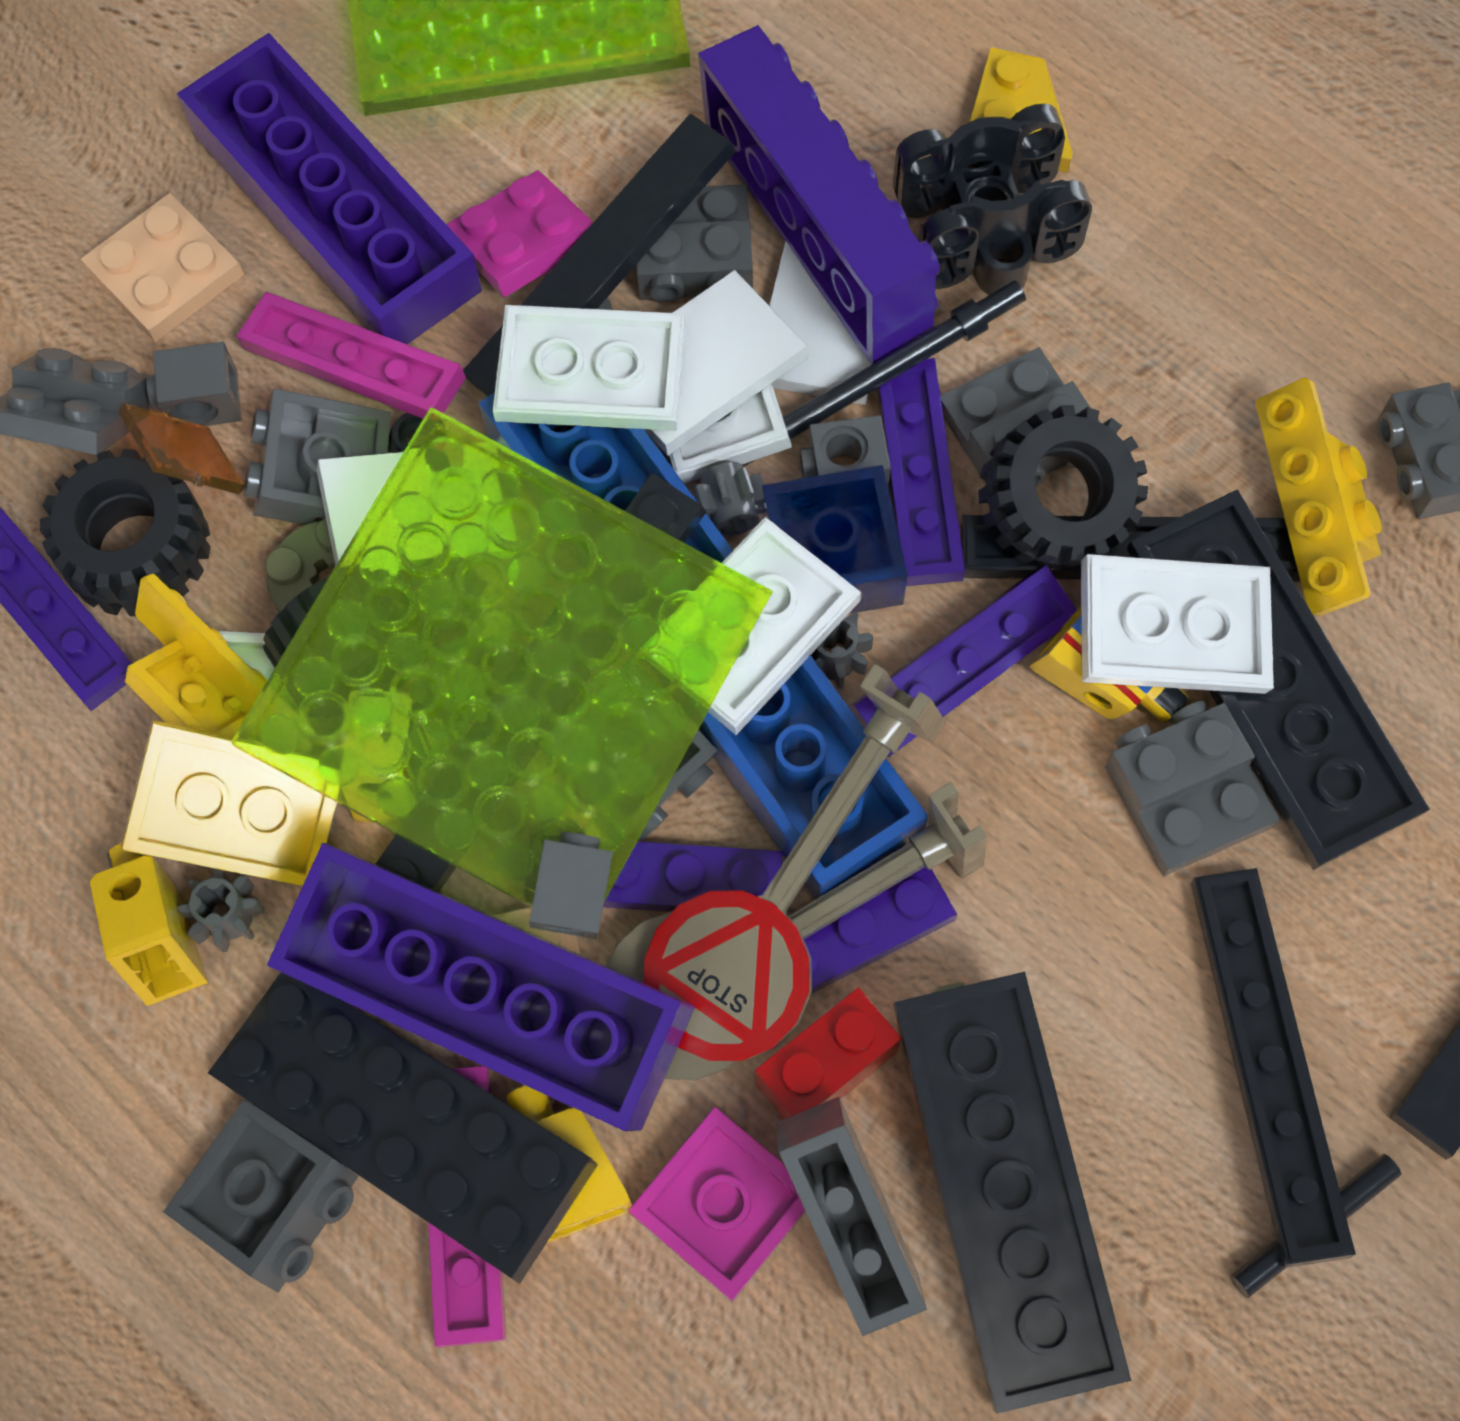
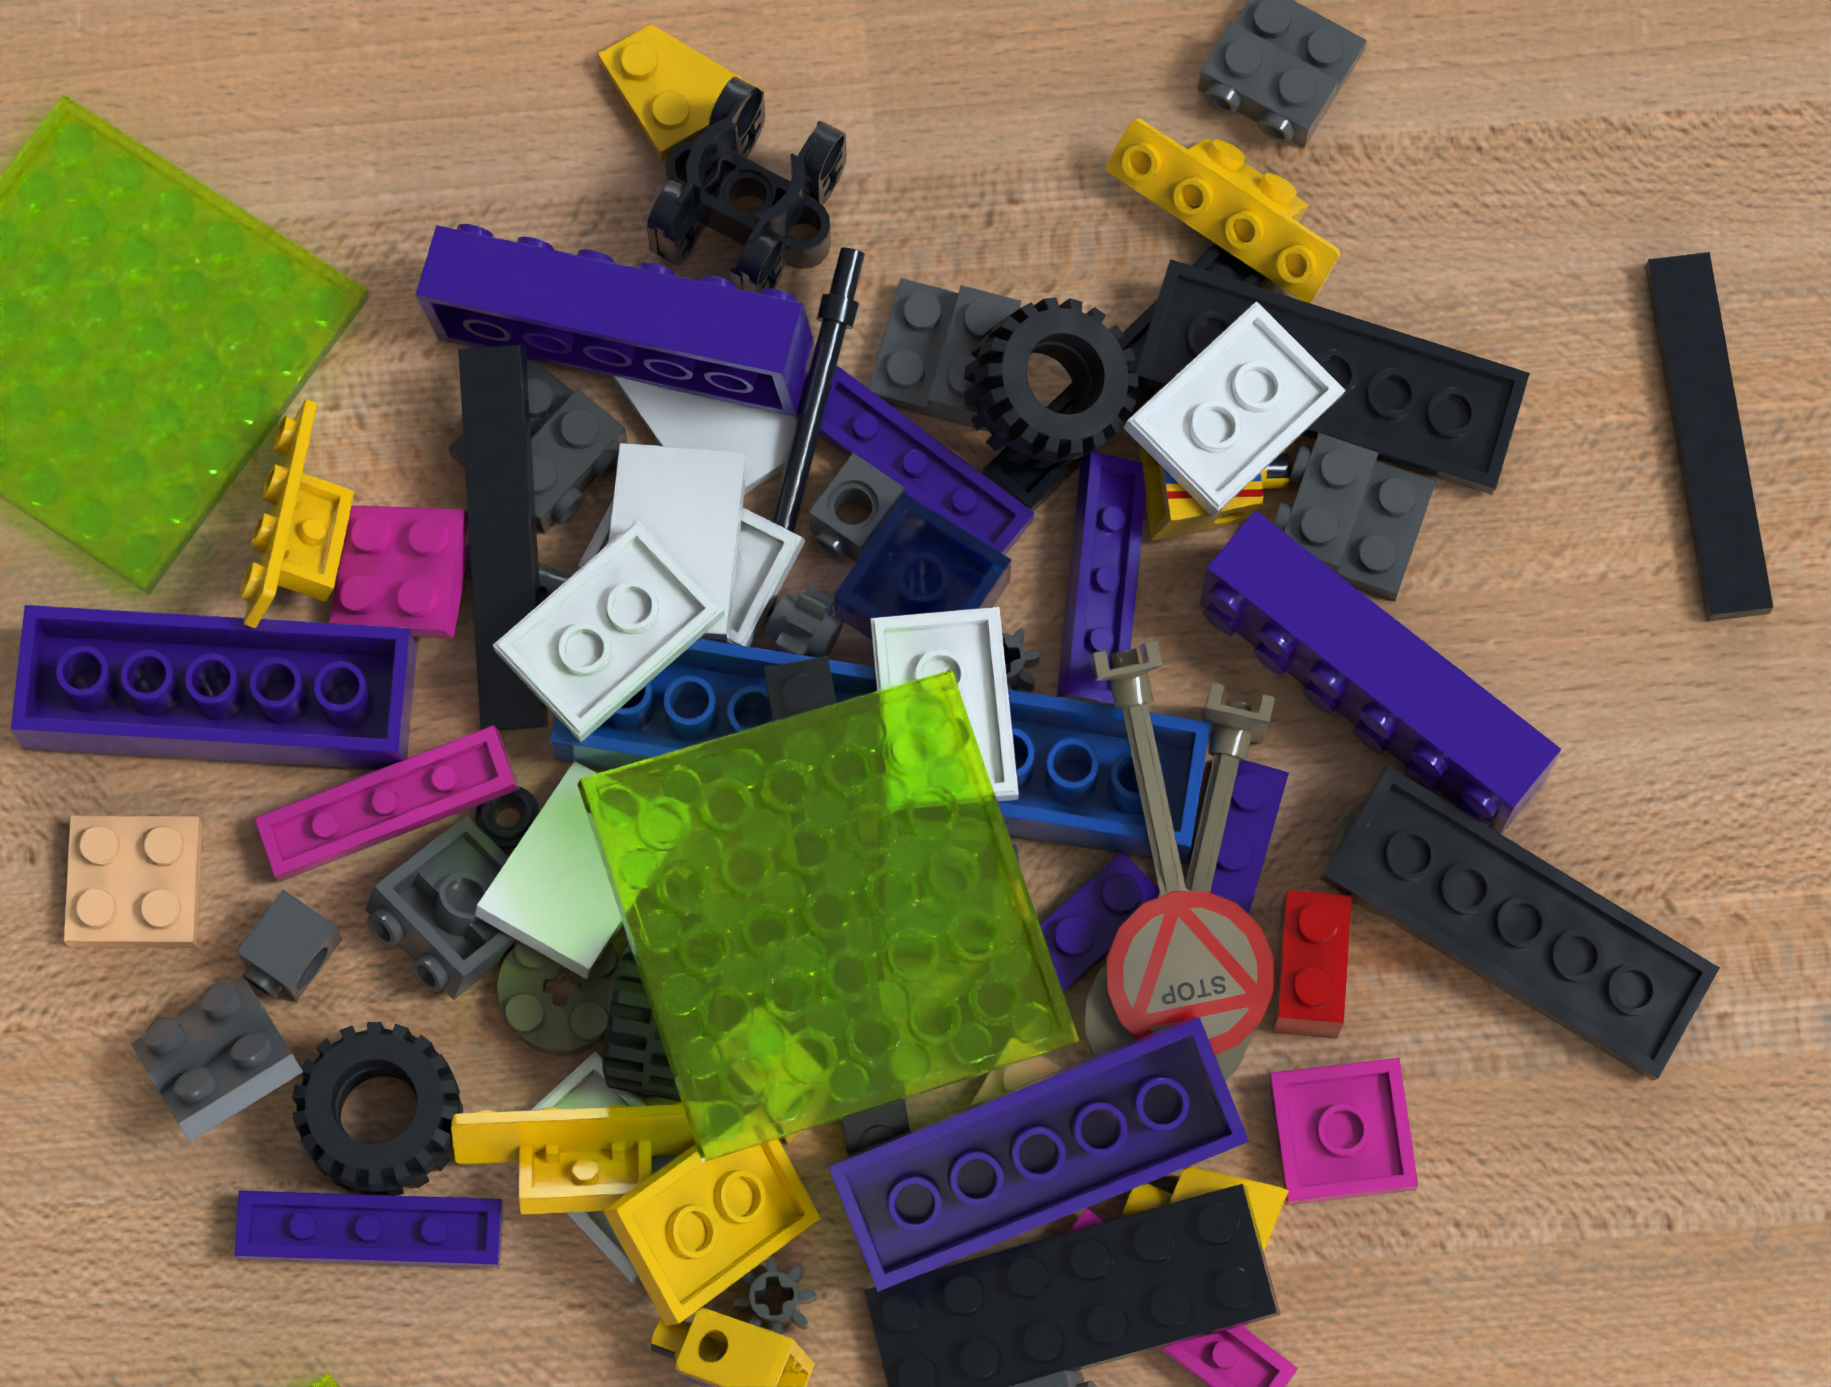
camera: 50 degrees left, 5 degrees up
(181, 449) = (351, 1003): clear orange piece -> none
(482, 144) = (303, 528): none -> yellow bracket
(571, 886) = (1045, 1016): dark grey brick -> none
(850, 1216) = (1442, 1045): dark grey brick -> none
(1089, 908) = (1375, 674): none -> dark purple brick
(1272, 1070) = (1598, 663): black tile -> none
(1354, 1196) = (1732, 744): black bar -> none

